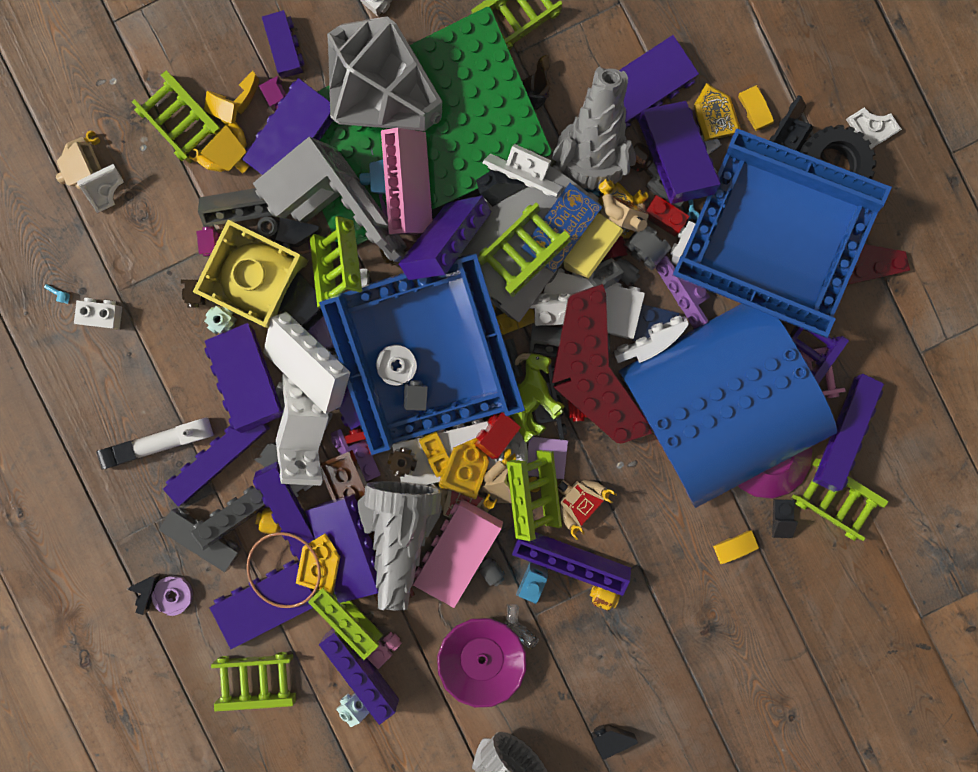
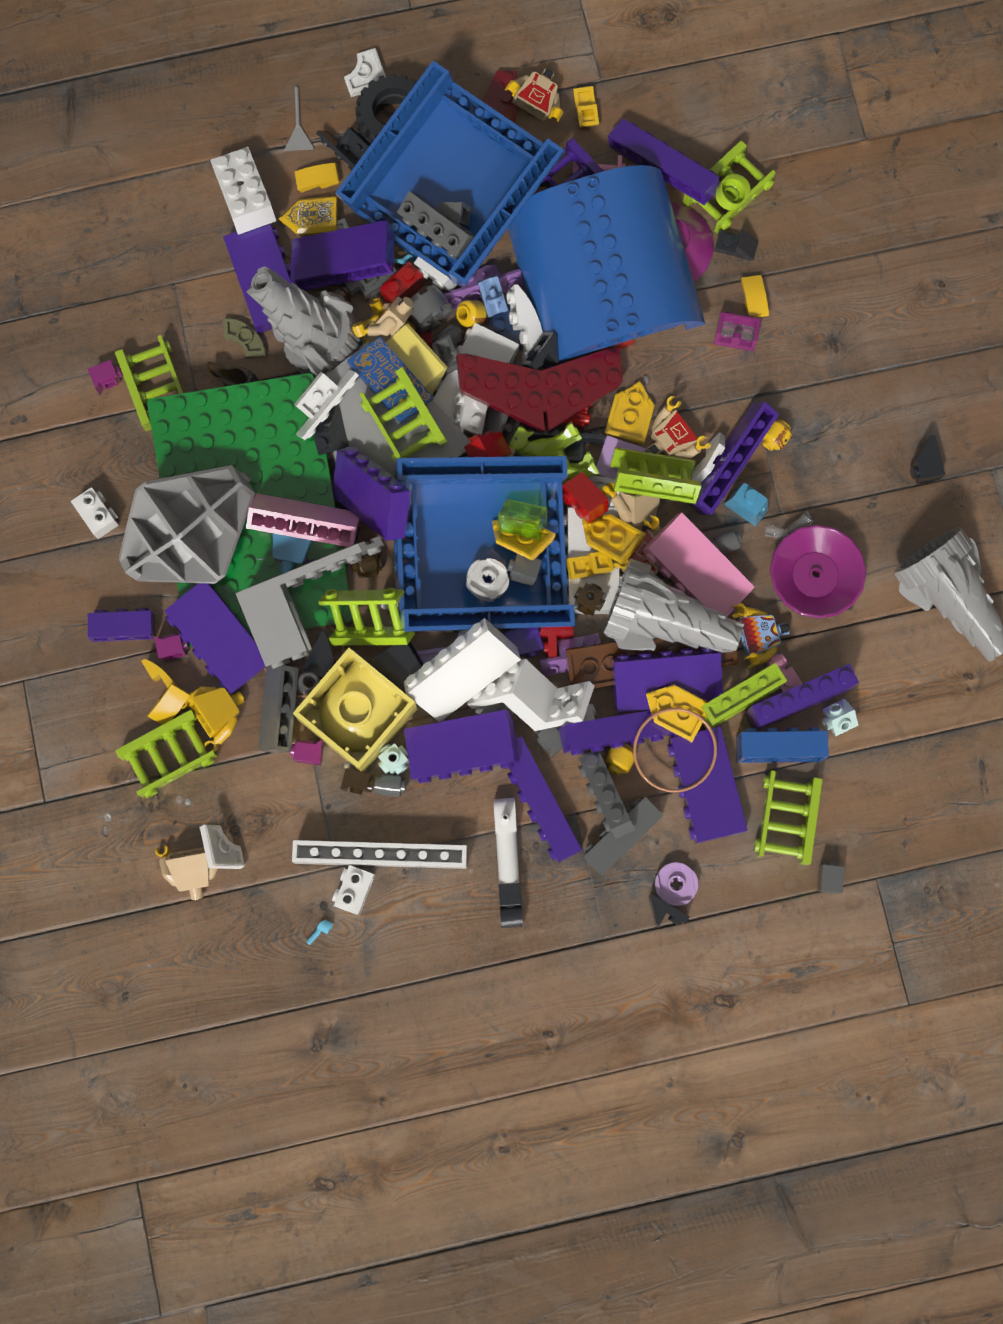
camera: 75 degrees left, 10 degrees down
(132, 329) = (379, 854): none -> white brick
(196, 322) = (389, 785): none -> dark grey brick
(209, 730) = (831, 878): none -> dark grey brick
(312, 664) = (784, 746): none -> blue brick
(413, 622) = (759, 634): none -> torso
(444, 386) = (523, 545): none -> yellow tile
(459, 383) = (522, 519): none -> clear neon green brick
(518, 335) = (488, 445): none -> red brick
(557, 537) = (706, 466): none -> white tile
(578, 89) = (244, 336): none -> olive tile
(593, 457) = (630, 415): none -> yellow tile
(632, 363) = (543, 350): none -> black slope
(654, 287) = (471, 312): none -> yellow head
(674, 302) = (492, 295): none -> medium blue hips
(697, 538) = (737, 331): none -> magenta window
(722, 41) = (243, 190): none -> white brick
(728, 232) = (435, 224): none -> dark grey brick
(745, 247) = (458, 211): none -> dark grey brick
(790, 81) = (298, 139): none -> light grey piece
(832, 505) = (732, 191): none -> lime hat
(888, 296) = (537, 95): none -> torso
(889, 345) = (585, 107): none -> yellow slope

